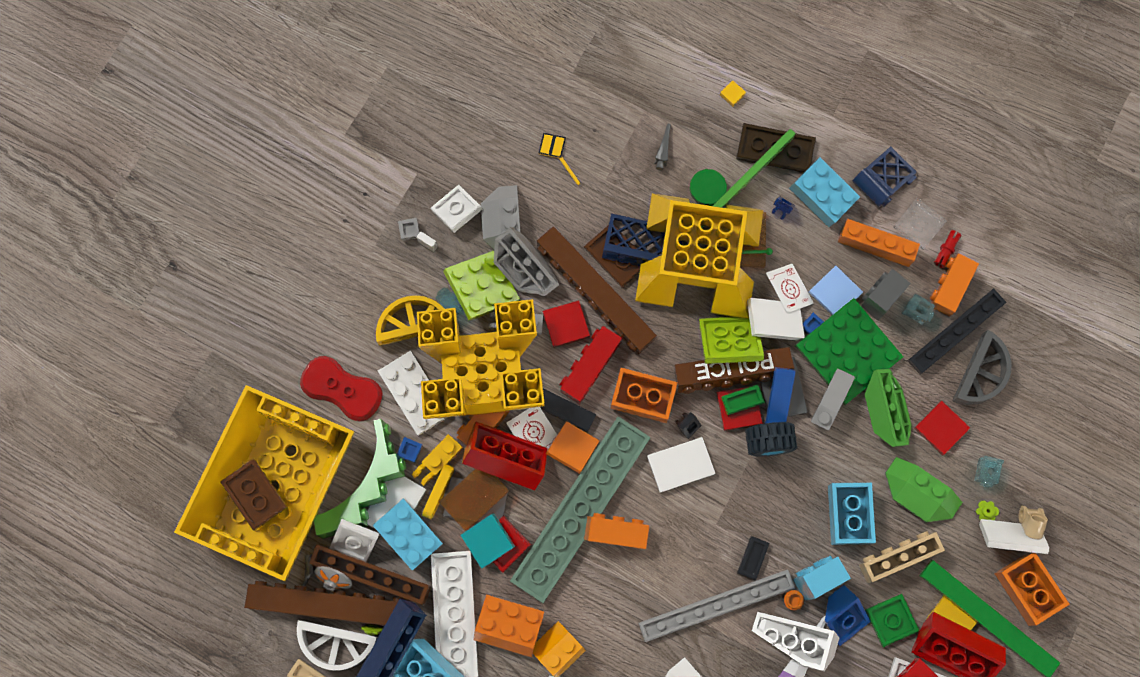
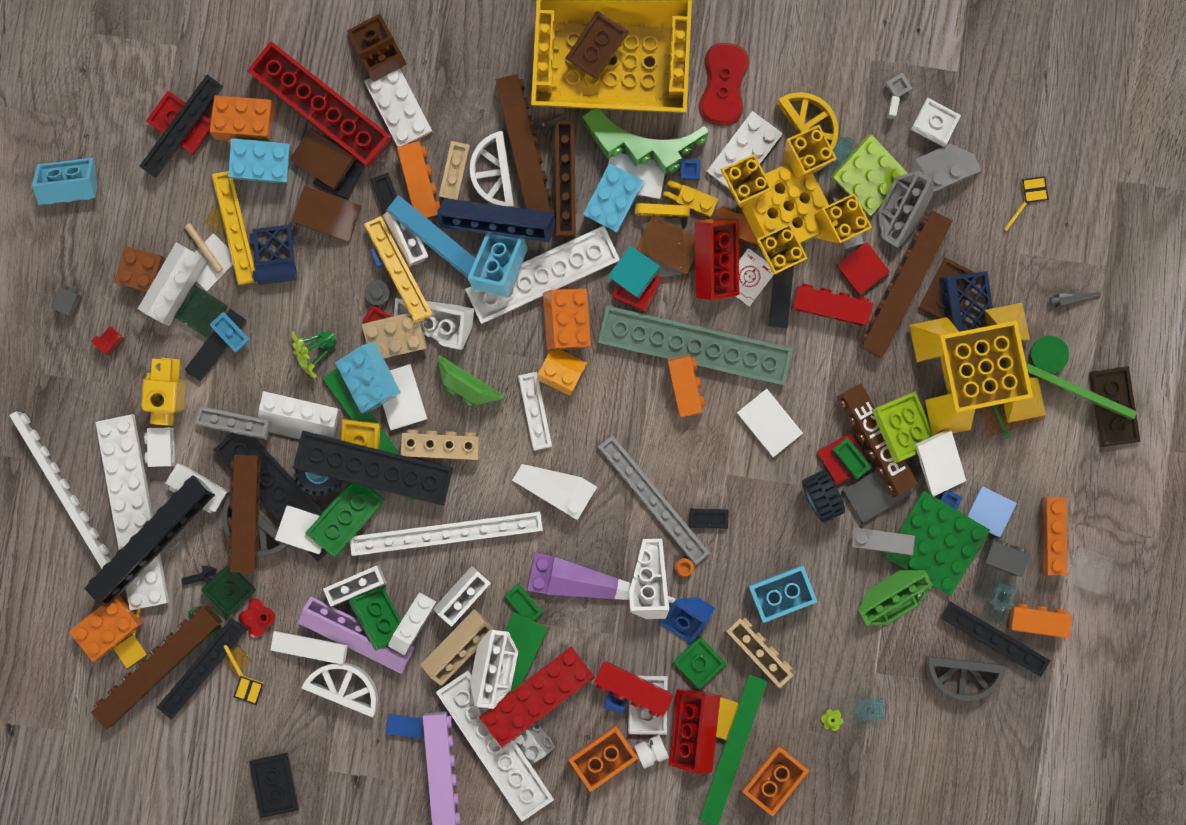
camera: 75 degrees right, 10 degrees up
(333, 578) = (549, 146): light grey dish -> none
(354, 540) = (590, 152): white tile -> none
(371, 629) = (518, 199): lime plant -> none
(573, 447) = (748, 317): orange tile -> none
(643, 395) = (821, 364): orange brick -> none
(688, 425) = (809, 417): black tile -> none
(732, 93) = (1155, 345): yellow tile -> none
(780, 395) = (868, 491): blue tile -> none
(783, 205) = (1058, 433): clear blue tile -> none
(789, 288) = (977, 466): white sticker -> none
(821, 577) = (715, 586): medium azure brick -> none
(824, 192) = (1085, 467): medium azure brick -> none
(878, 189) = (1110, 517): dark blue piece -> none
(921, 492) = (826, 652): bright green wedge -> none
(942, 428) = (895, 653): red tile -> none
(947, 249) = (1074, 605): red pin -> none
(1011, 537) = (816, 749): white tile -> none
(1033, 522) = (836, 763): tan piece -> none

